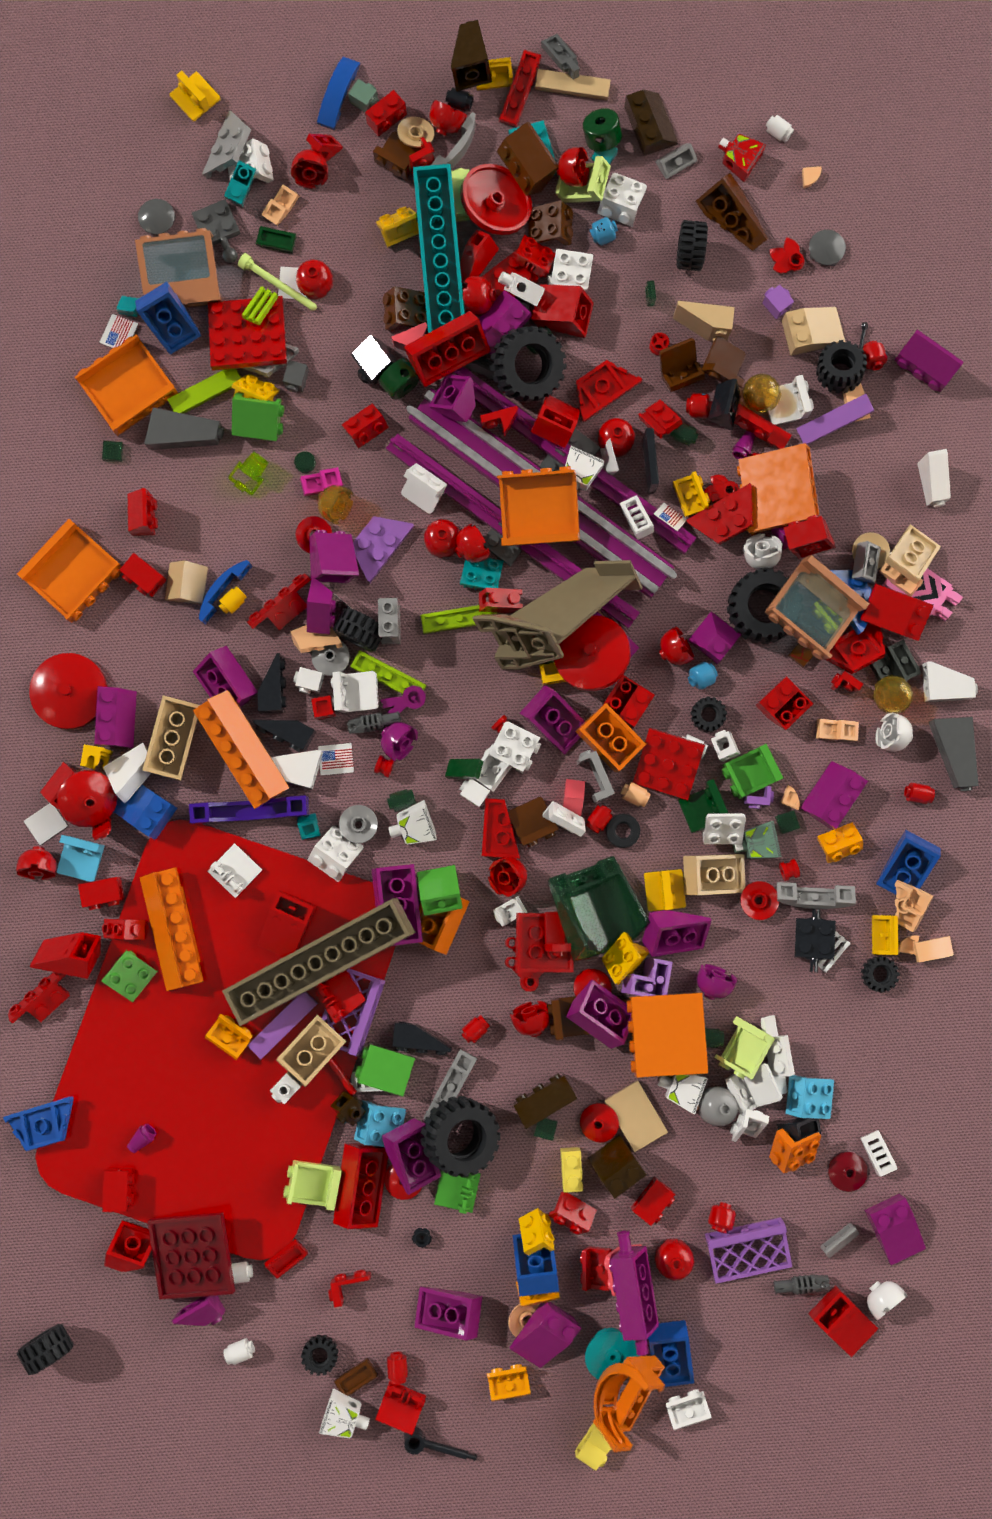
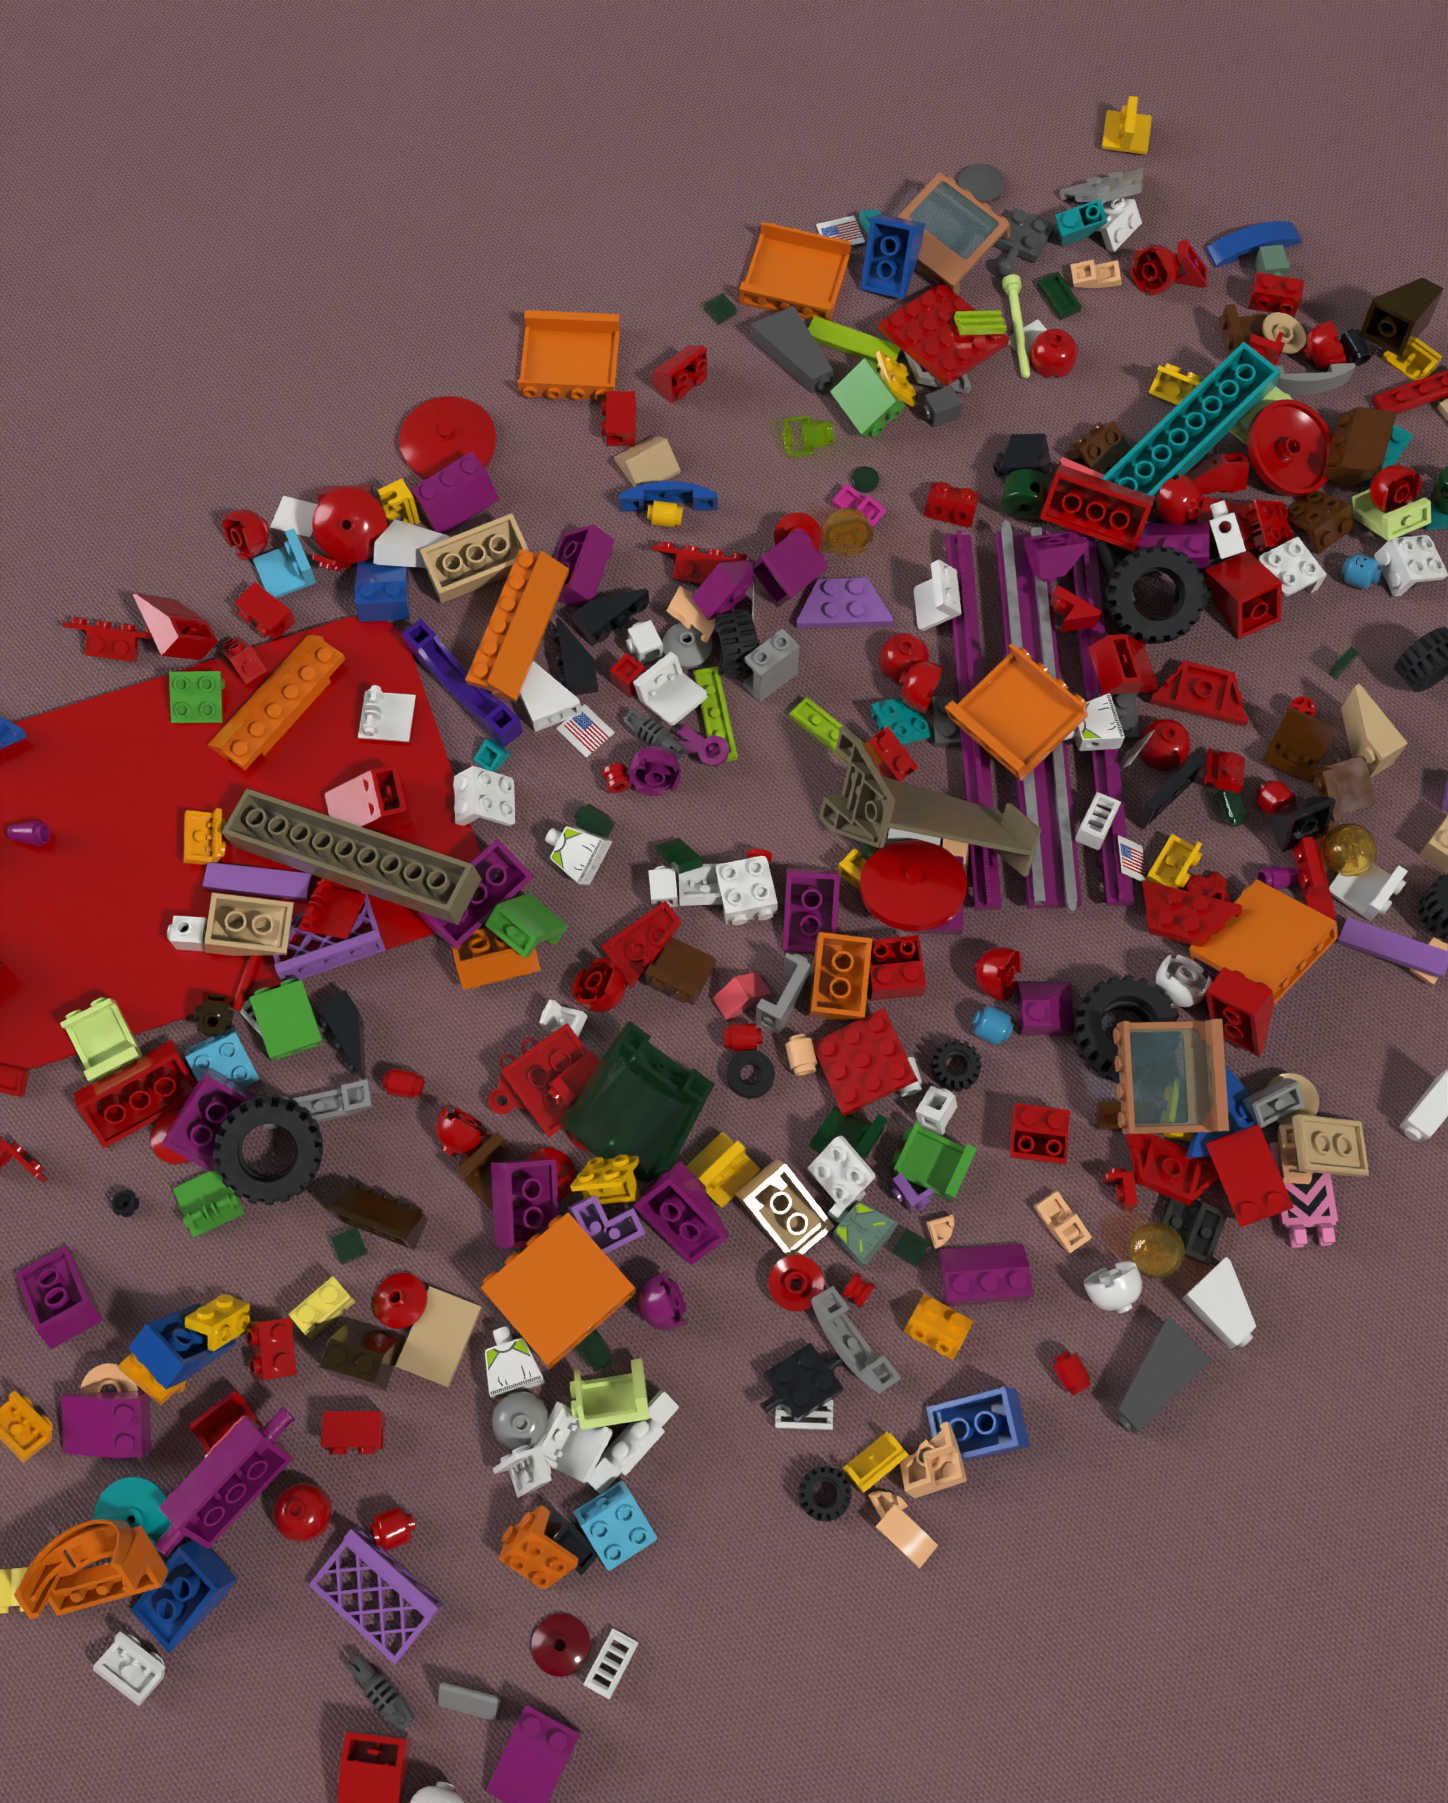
camera: 55 degrees right, 15 degrees down
(355, 814) = (533, 787): light grey dish -> none
(565, 818) = (712, 997): white bracket -> none

